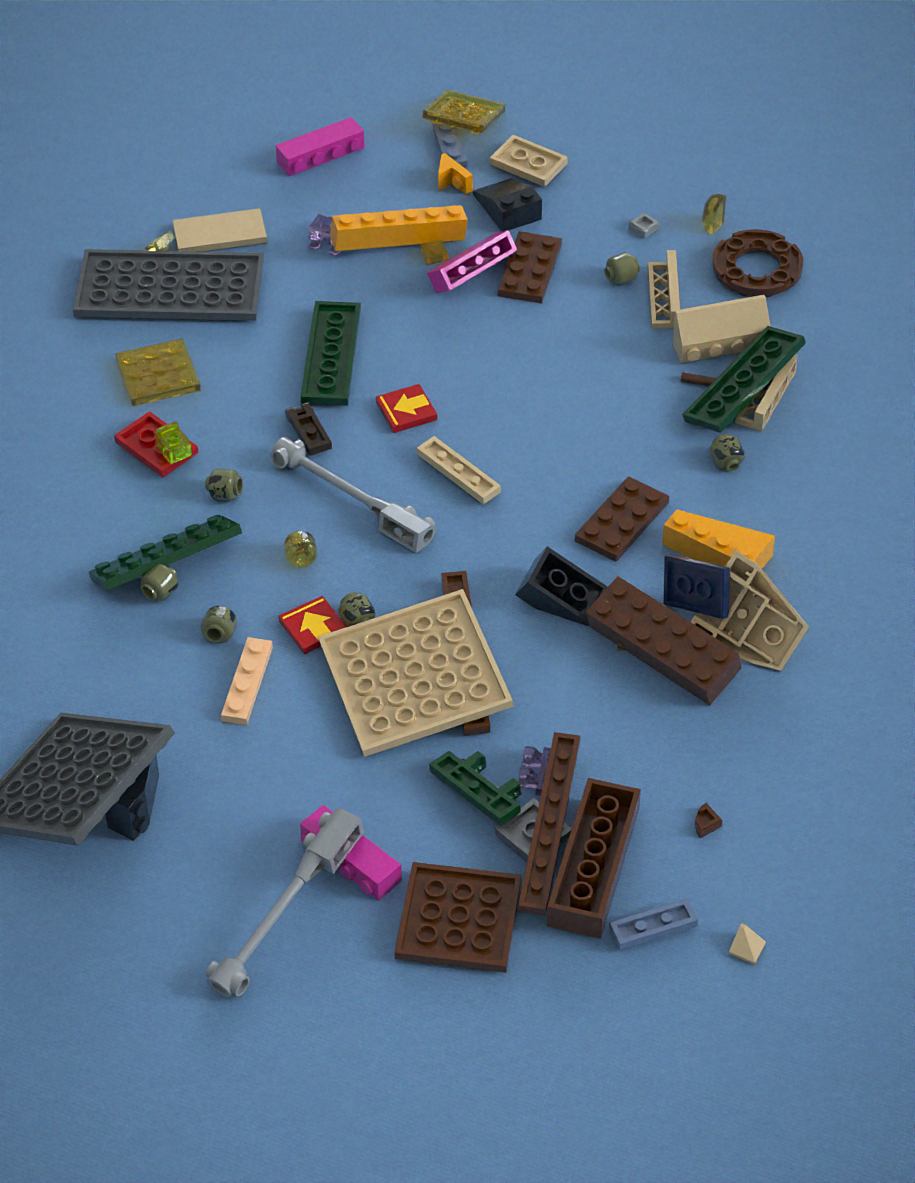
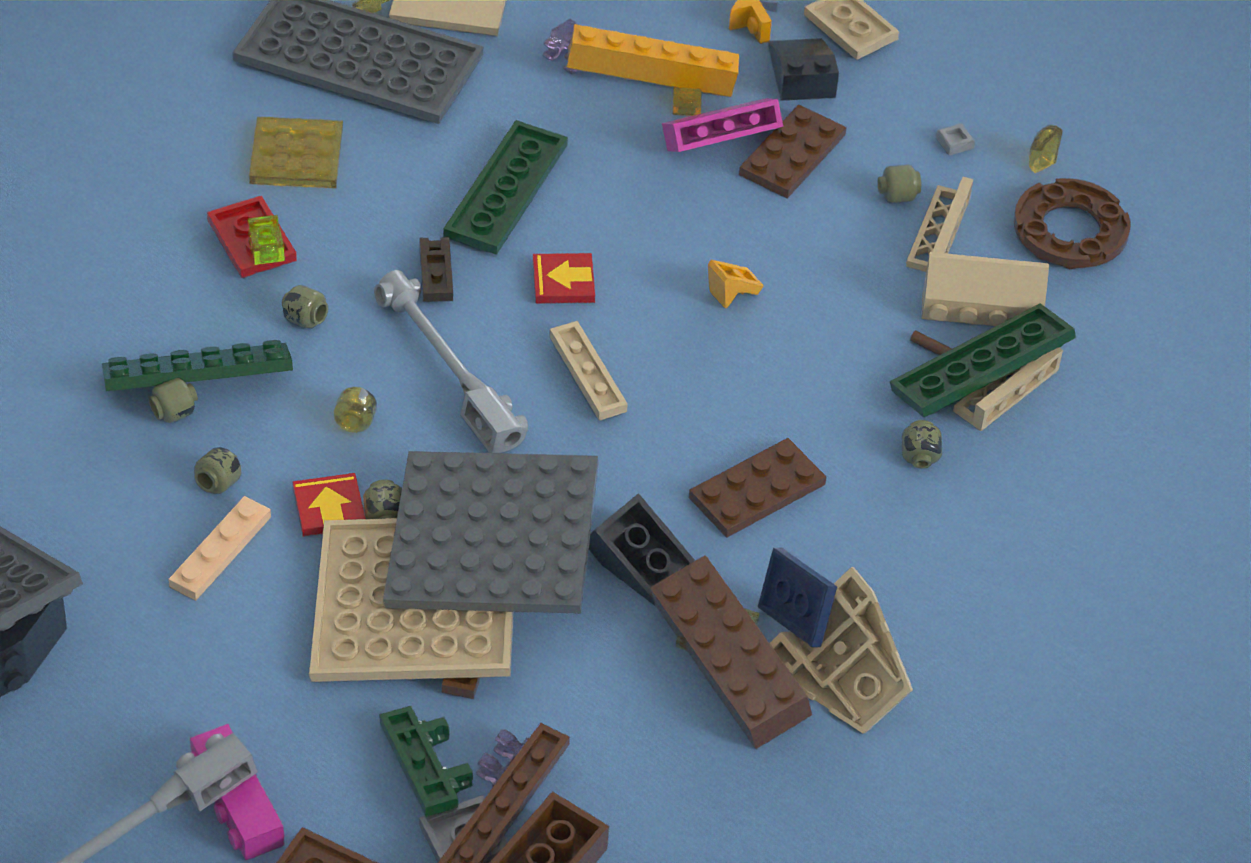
camera: 15 degrees right, 0 degrees up
(452, 606) = (492, 532): none -> dark grey plate
(531, 375) = (729, 279): none -> light orange slope
(715, 540) = (846, 542): light orange wedge -> none

